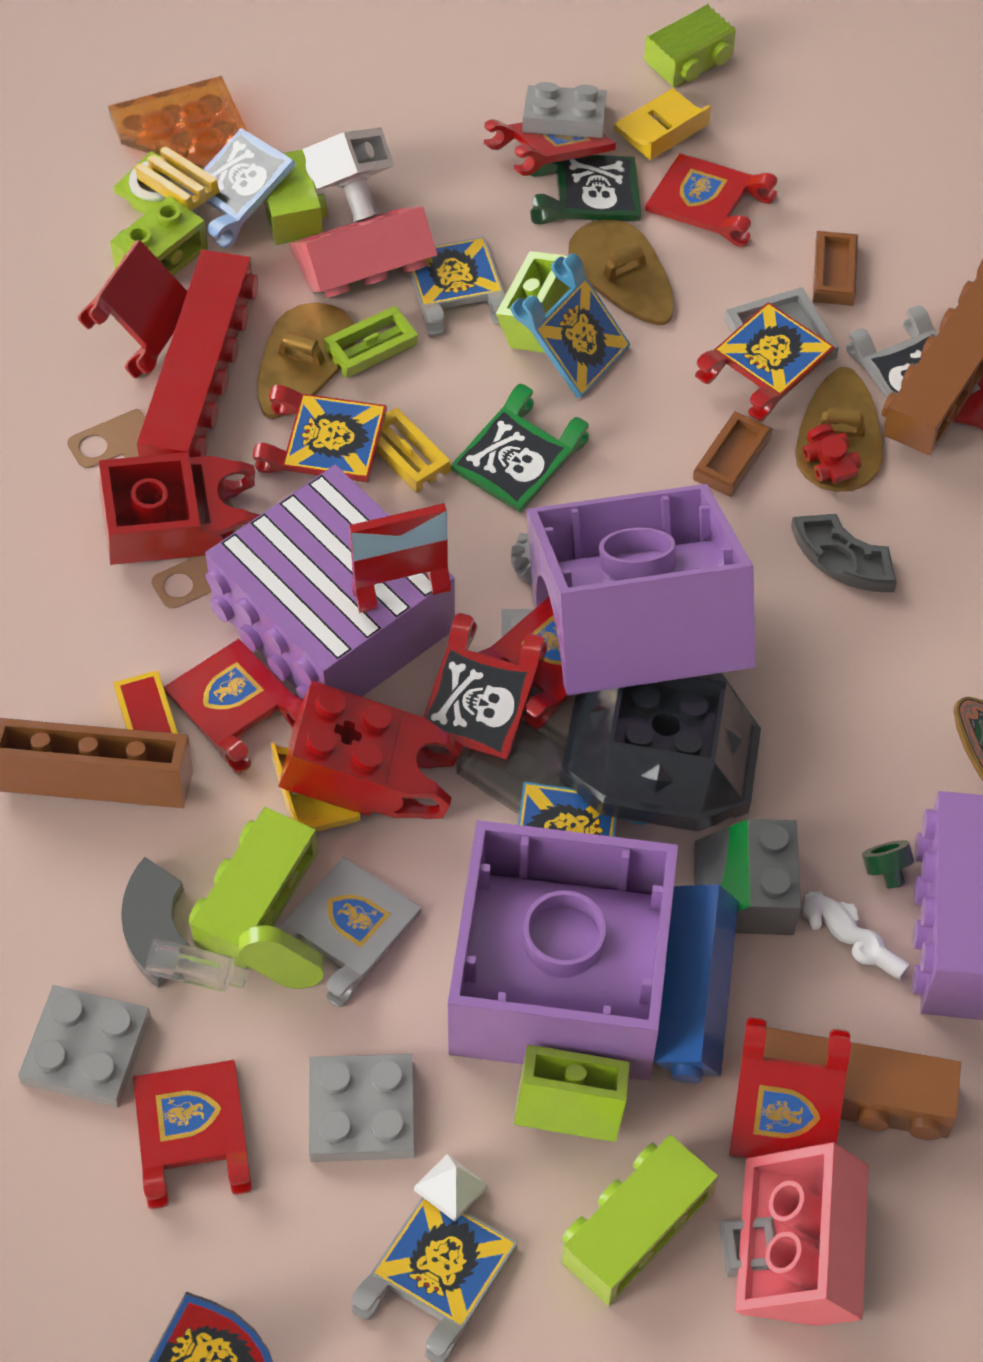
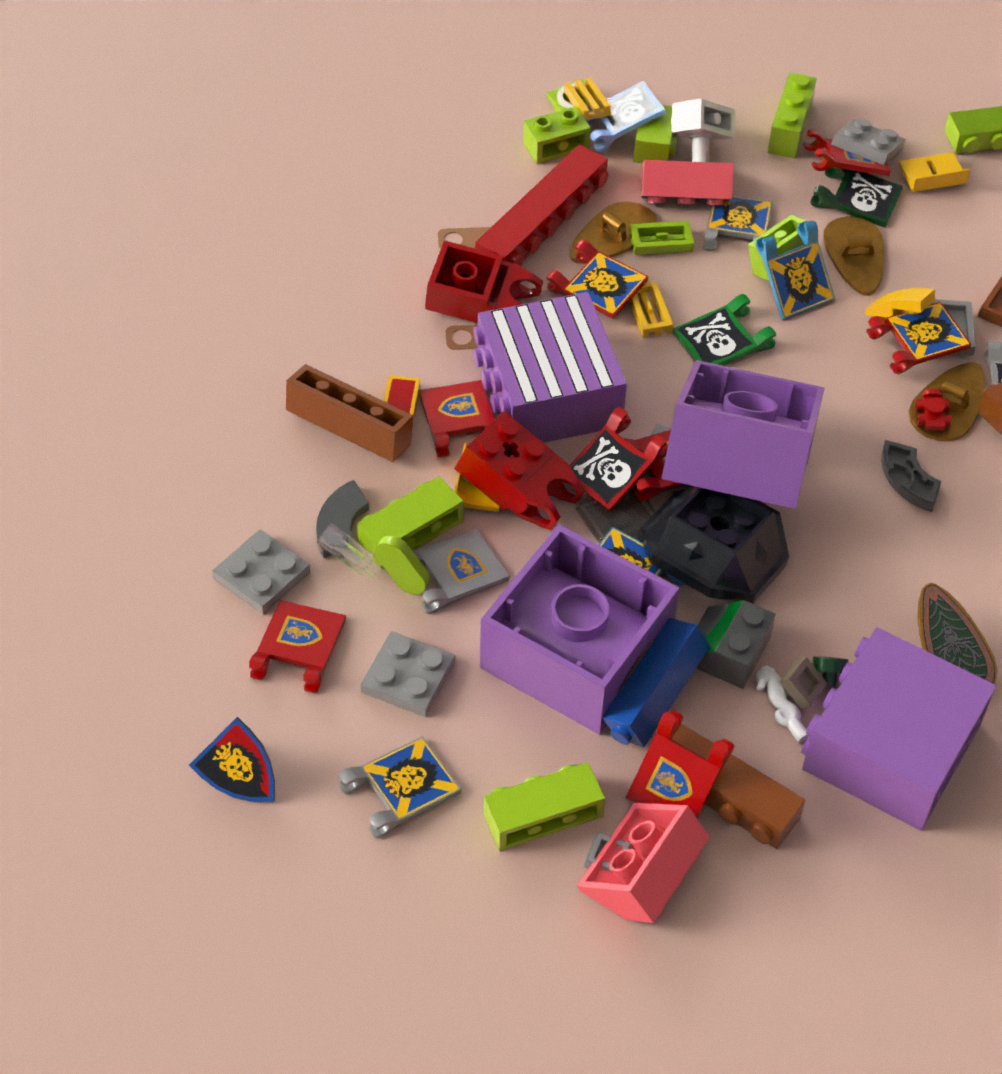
camera: 25 degrees right, 5 degrees down
(144, 302) = (525, 162): red flag -> none
(187, 119) = (610, 67): clear orange plate -> none
(398, 549) = (590, 343): red flag -> none
(450, 1187) = (437, 740): white slope -> none
(451, 108) = (792, 115): none -> lime brick
(572, 1093) = (539, 714): lime brick -> none
(707, 196) = (940, 224): red flag -> none
(732, 454) = (866, 388): dark orange tile -> none
(733, 314) = (908, 300): none -> yellow slope
(870, 897) = (803, 682): none -> dark tan plate

